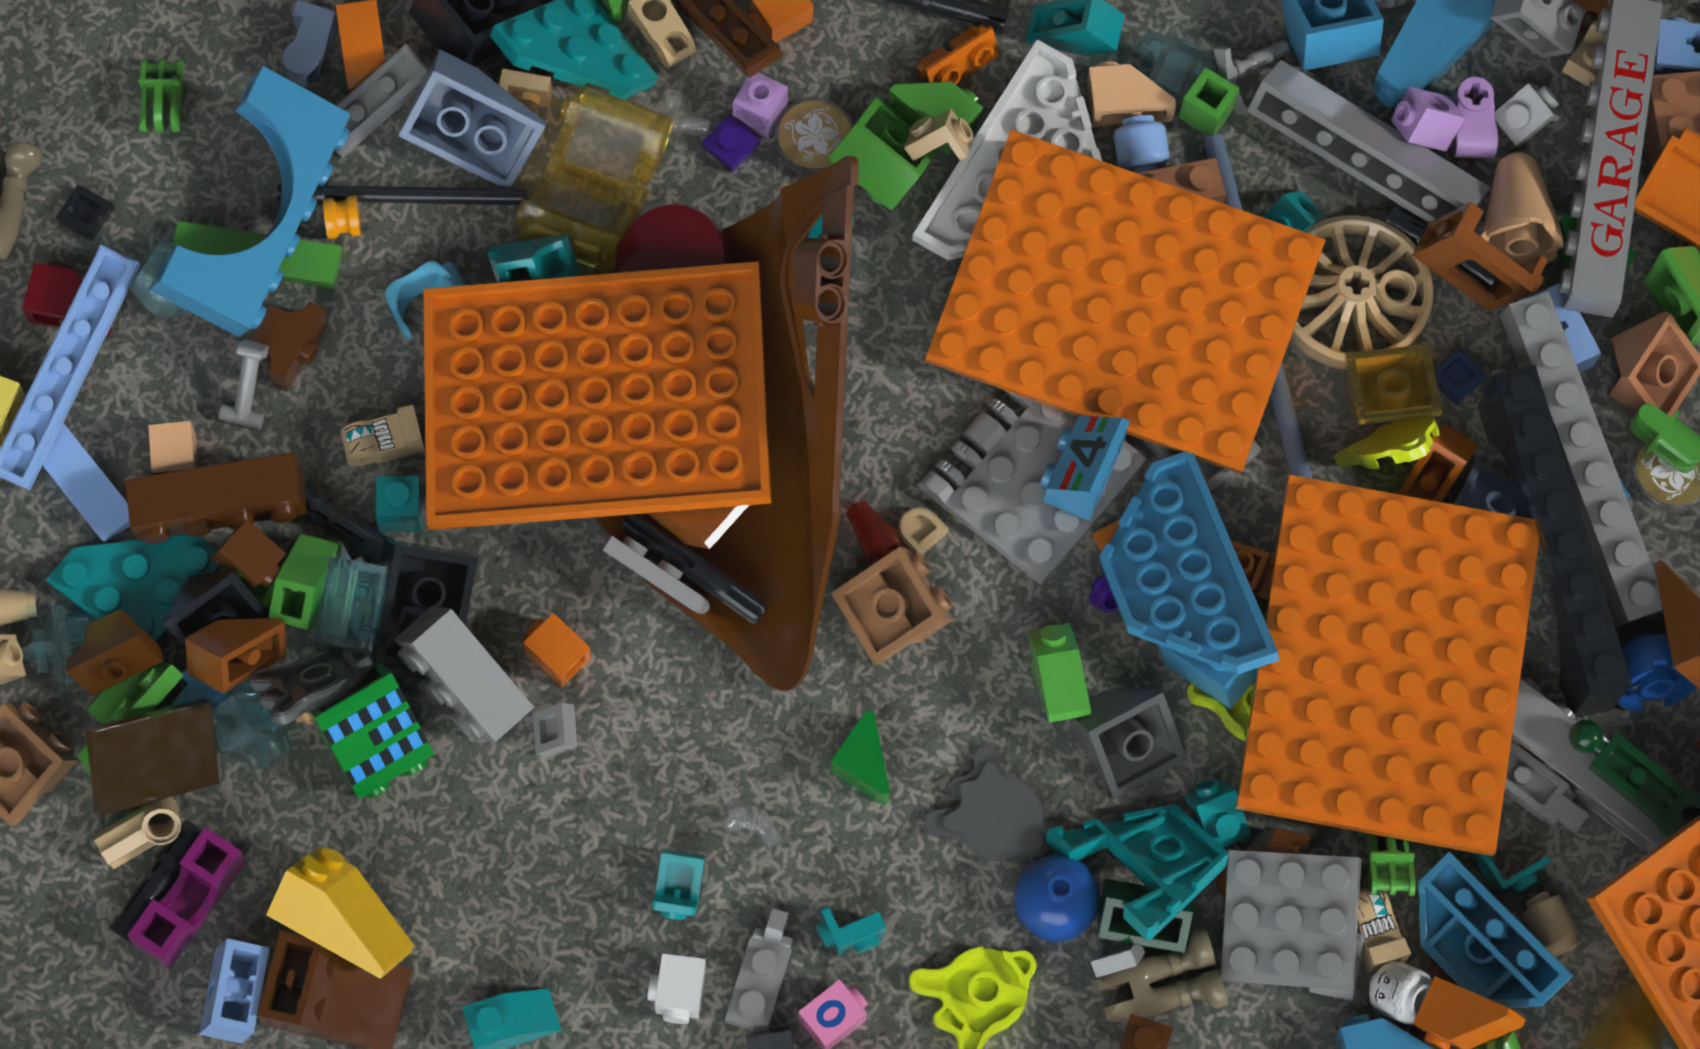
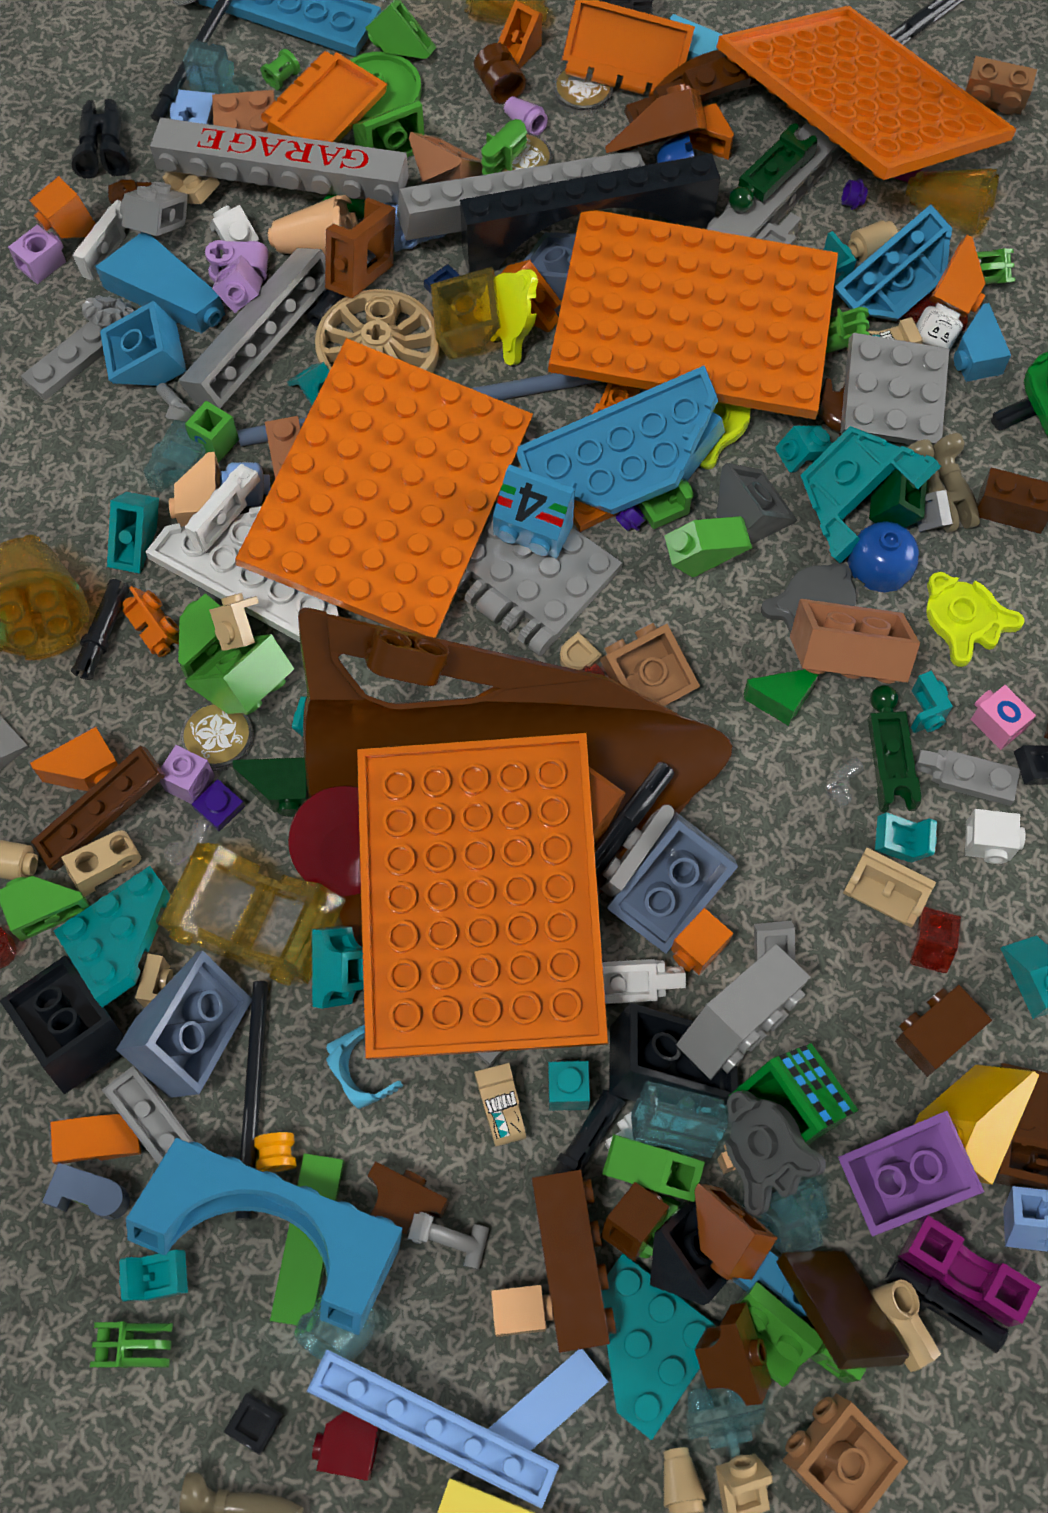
camera: 85 degrees left, 5 degrees down
(220, 101) = (153, 1276): none -> teal bracket
(280, 828) = (910, 1174): none -> medium lavender slope
(449, 903) = (942, 1029): none -> reddish brown brick
(514, 574) = (640, 980): none -> white hinge
(556, 909) = (936, 940): none -> clear red bracket
(619, 862) = (889, 887): none -> tan hinge
(627, 619) = (673, 883): none -> sand blue slope
(748, 190) = (275, 781): none -> dark green slope
(791, 882) = (892, 751): none -> dark green plate
(920, 831) = (854, 641): none -> nougat brick
(1089, 115) = (221, 508): none -> white hinge
(1121, 644) = (668, 505): none -> bright green bracket

